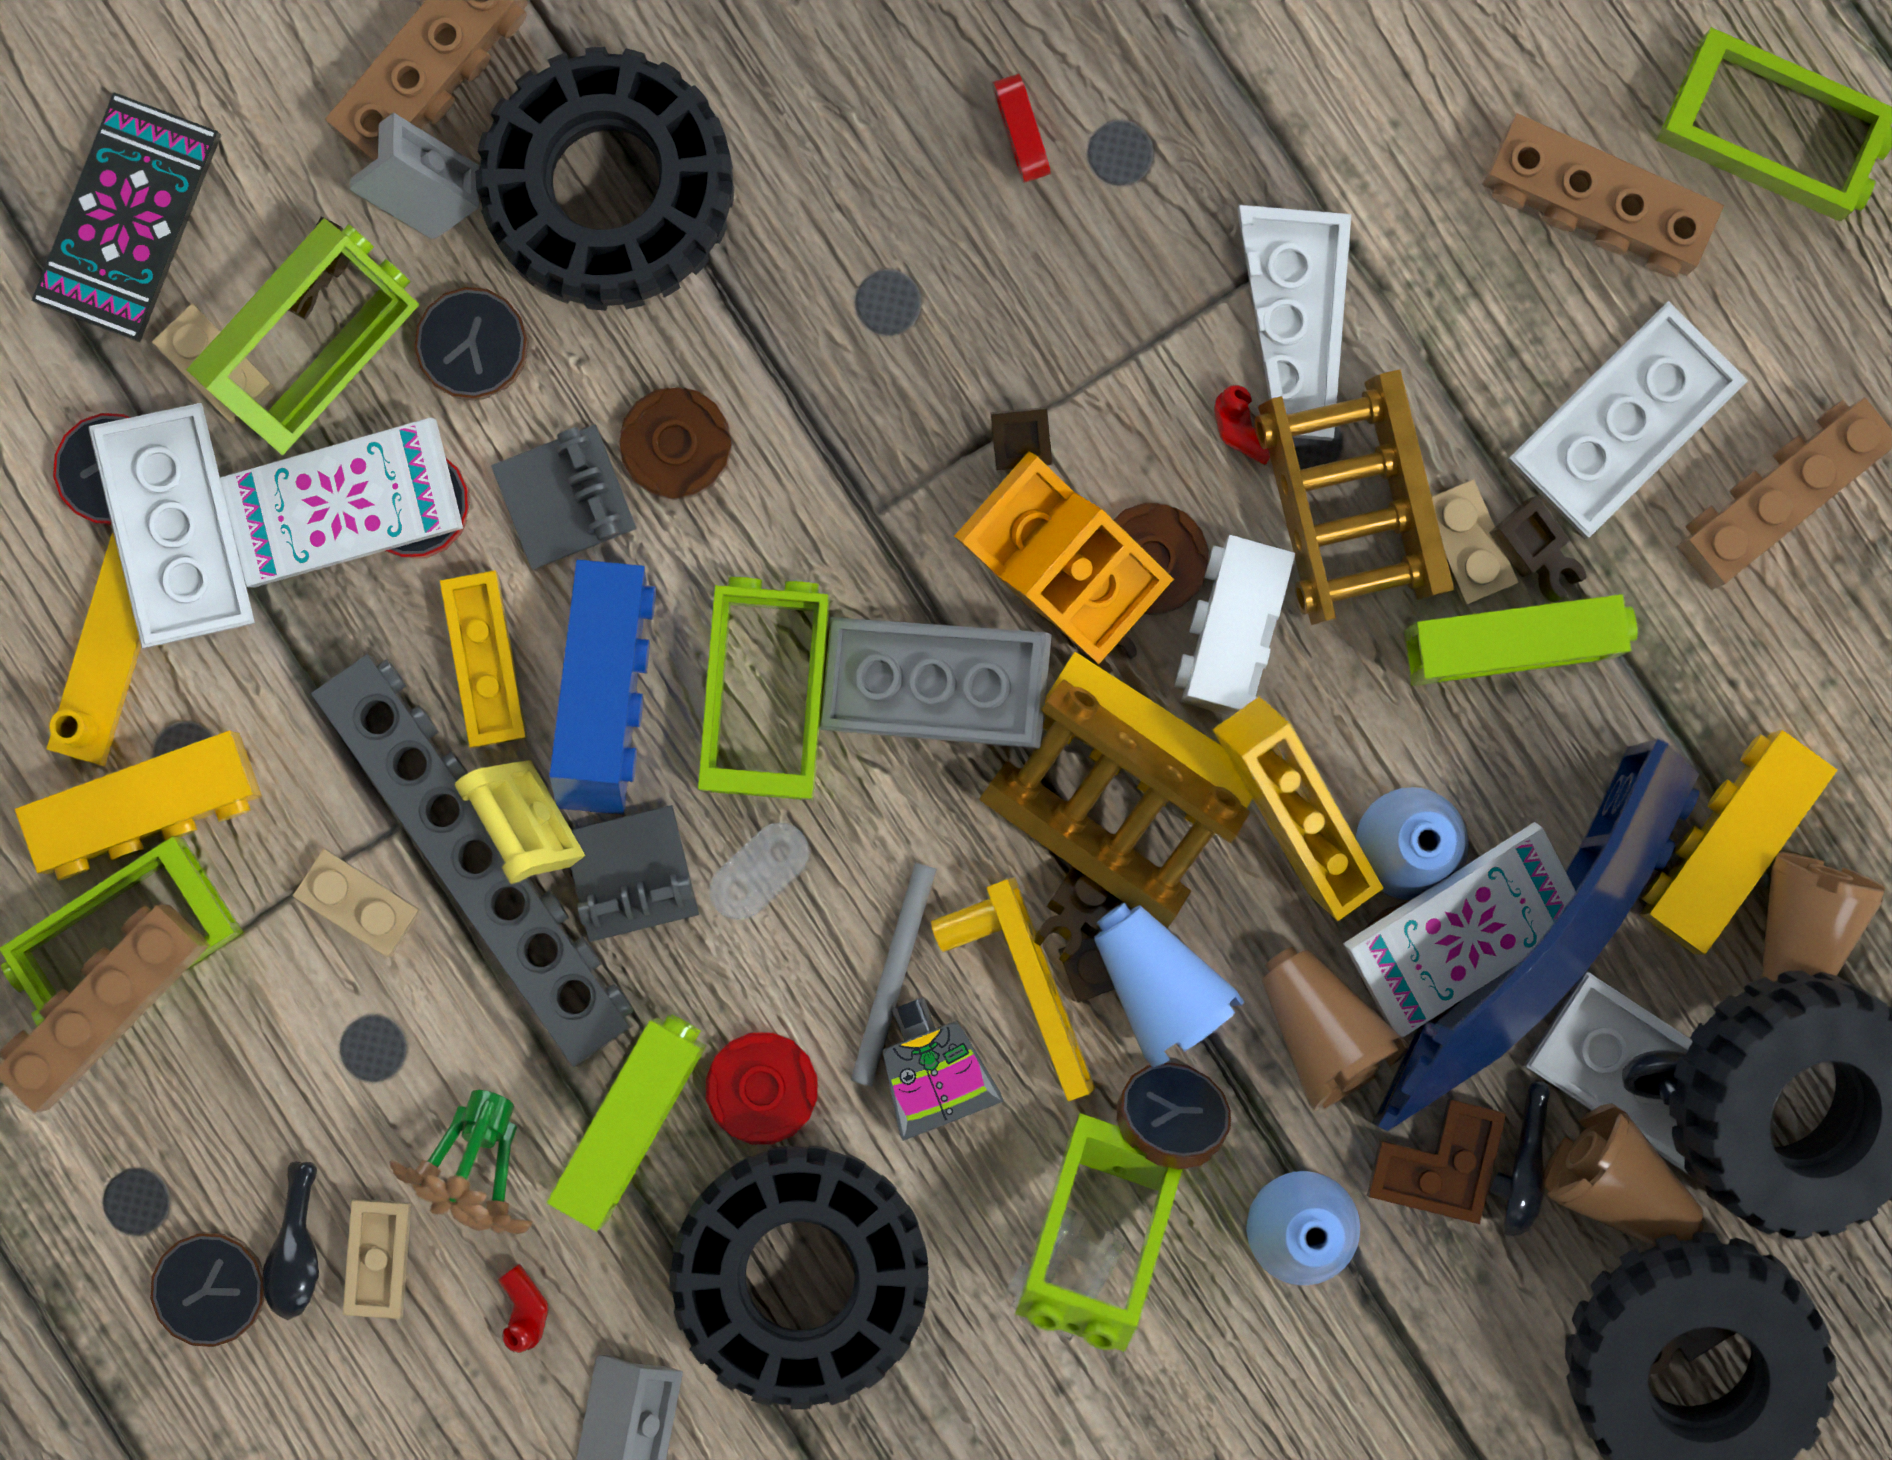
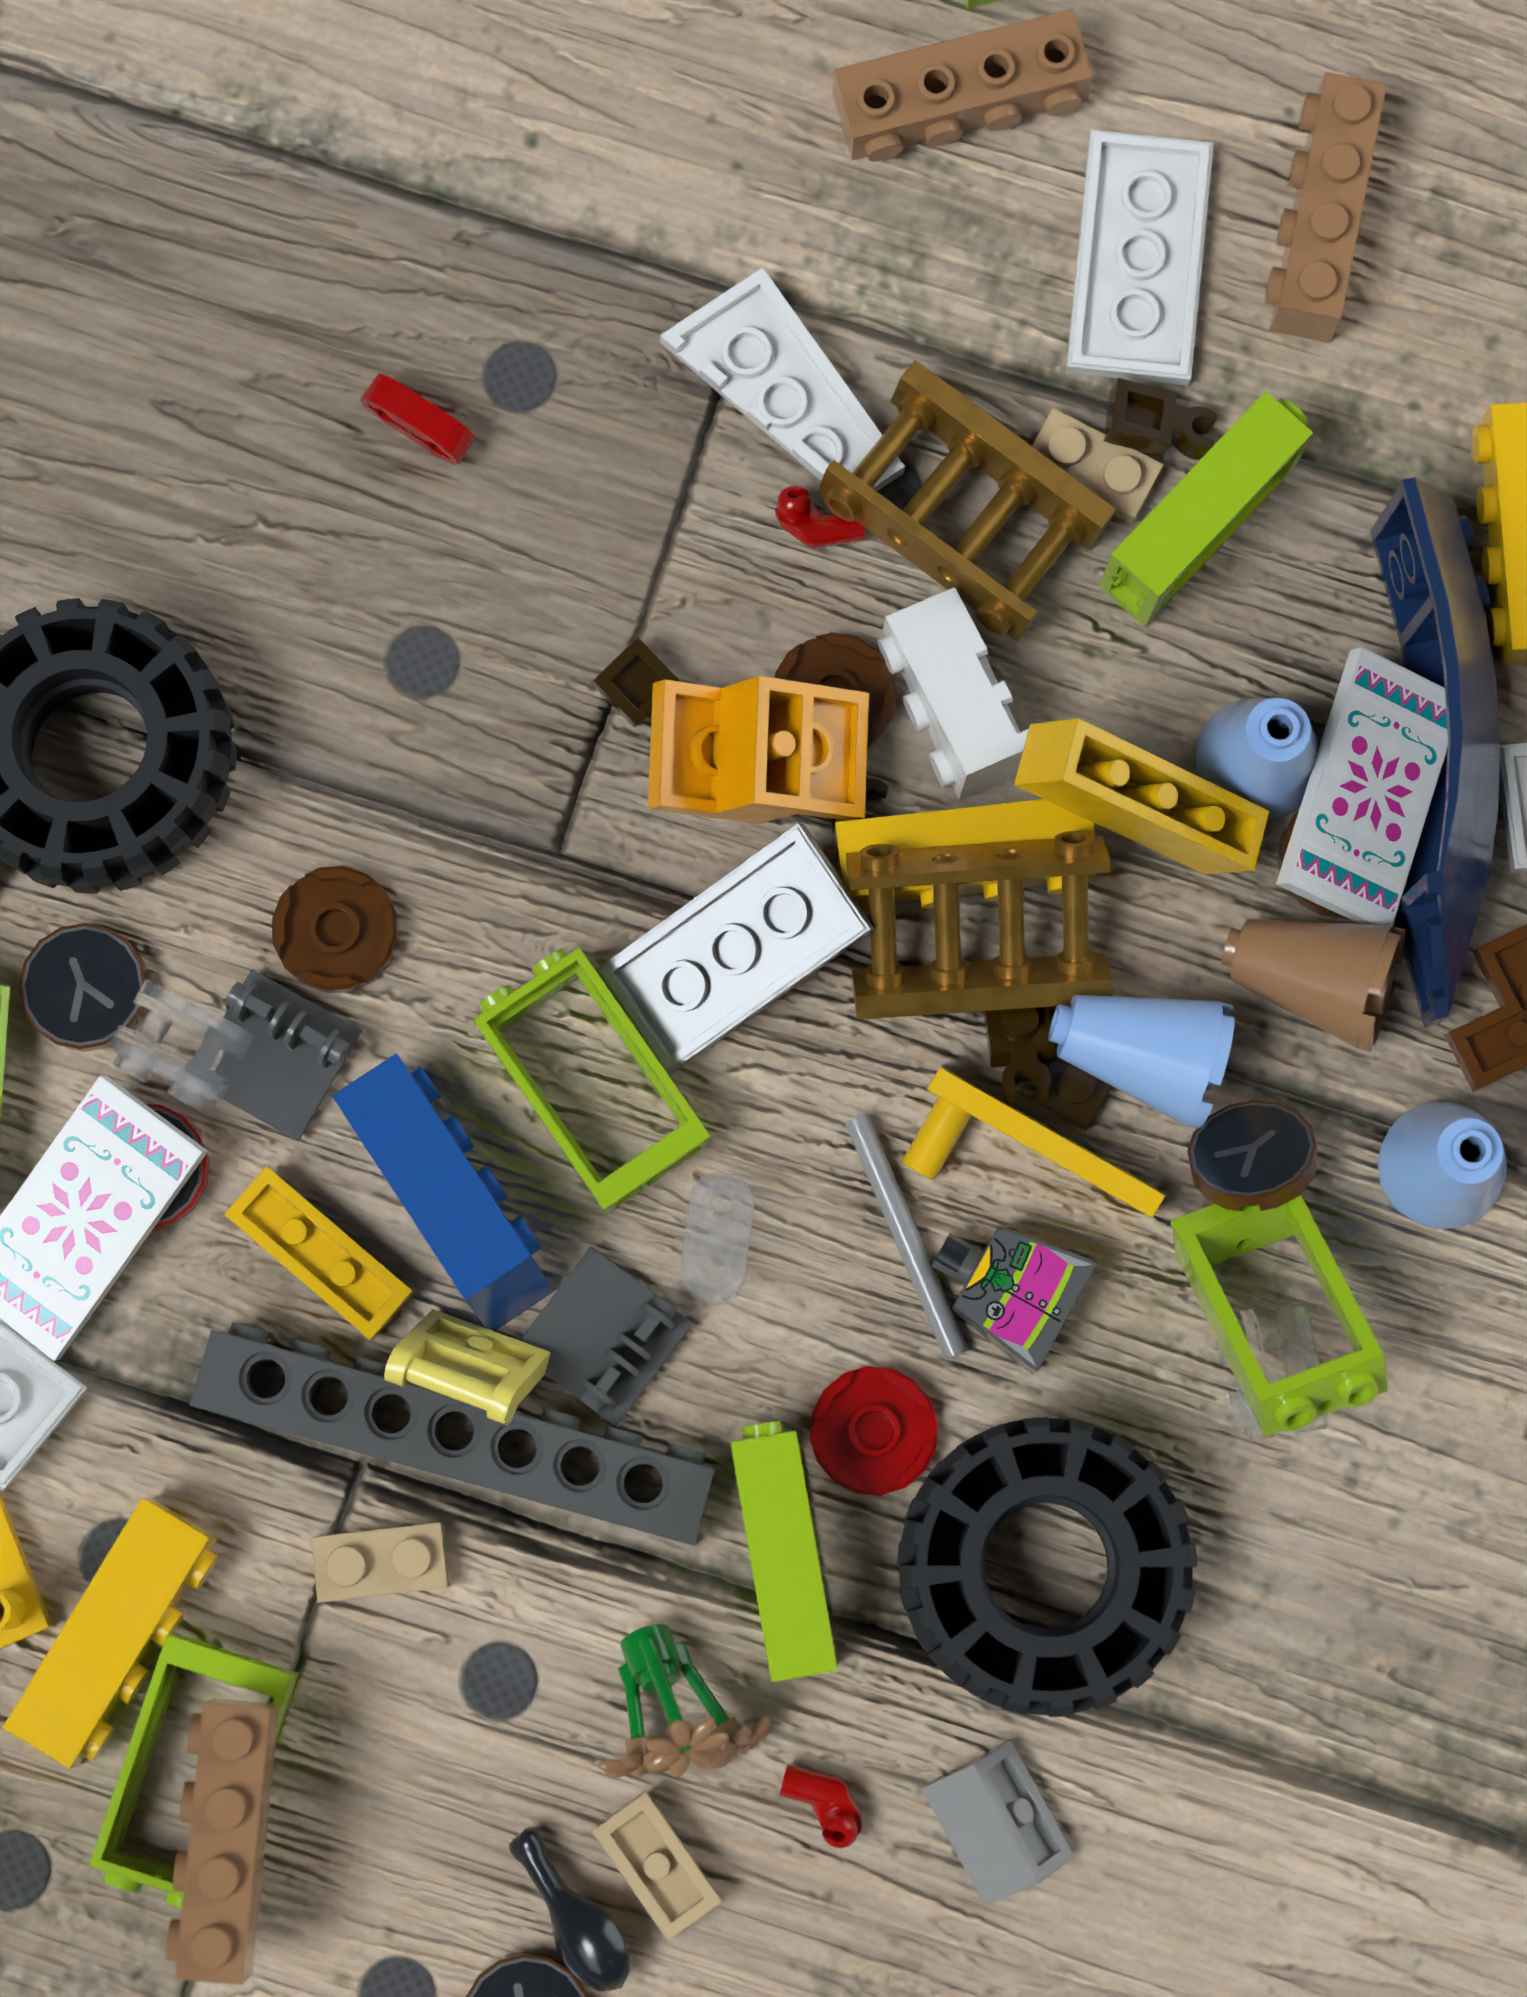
camera: 40 degrees left, 5 degrees down
(491, 471) = (192, 1080): none -> clear brick

